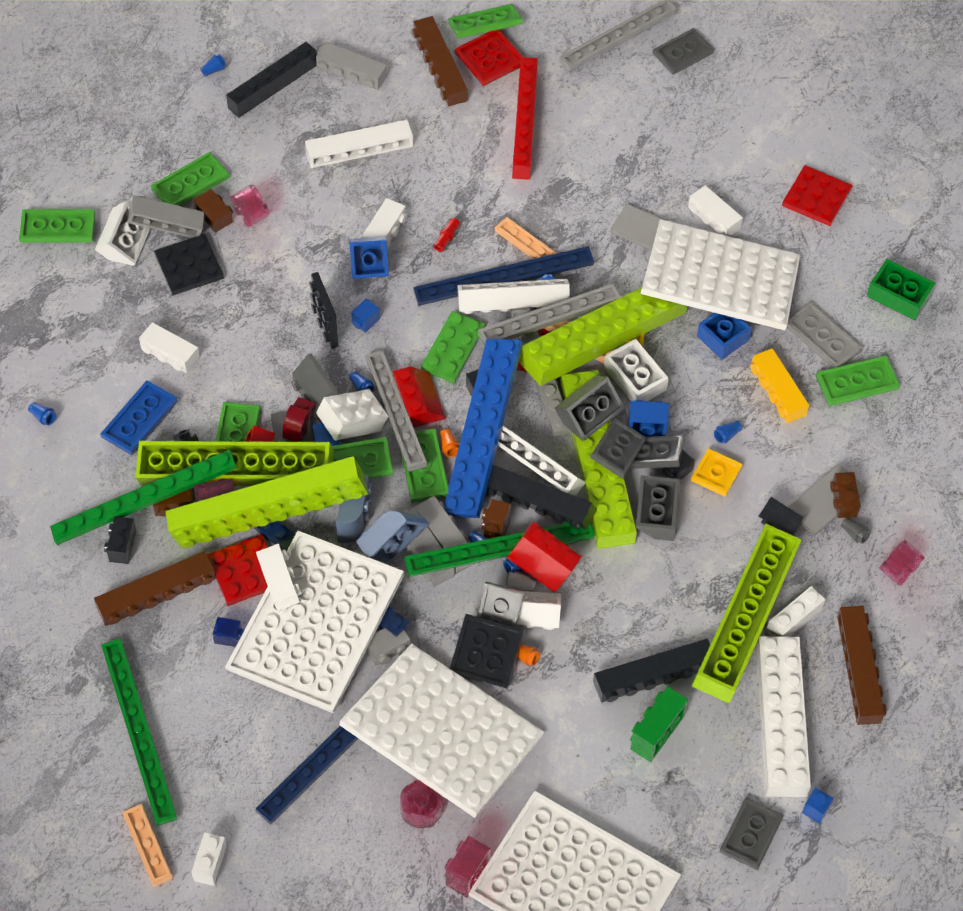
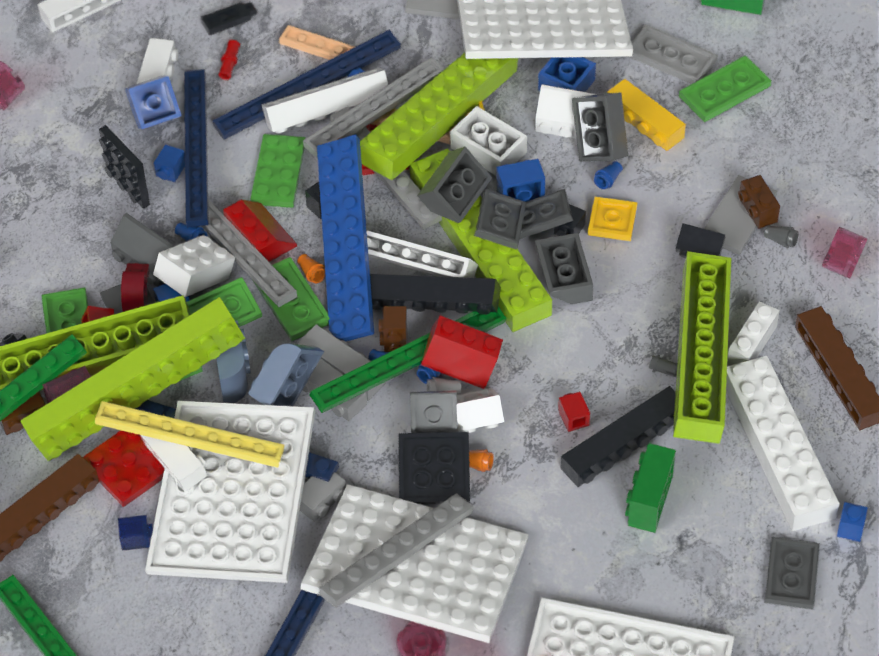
camera: 15 degrees left, 5 degrees down
(294, 565) = (189, 434): none -> light yellow tile
(390, 308) = (196, 149): none -> dark blue plate
(427, 715) = (395, 550): none -> light grey plate
(459, 195) = (228, 17): none -> black hinge
(620, 635) = (574, 411): none -> red brick
(710, 617) = (663, 366): none -> dark grey pin
(713, 367) = (556, 111): none -> white slope
(733, 388) = (600, 127): none -> dark grey slope

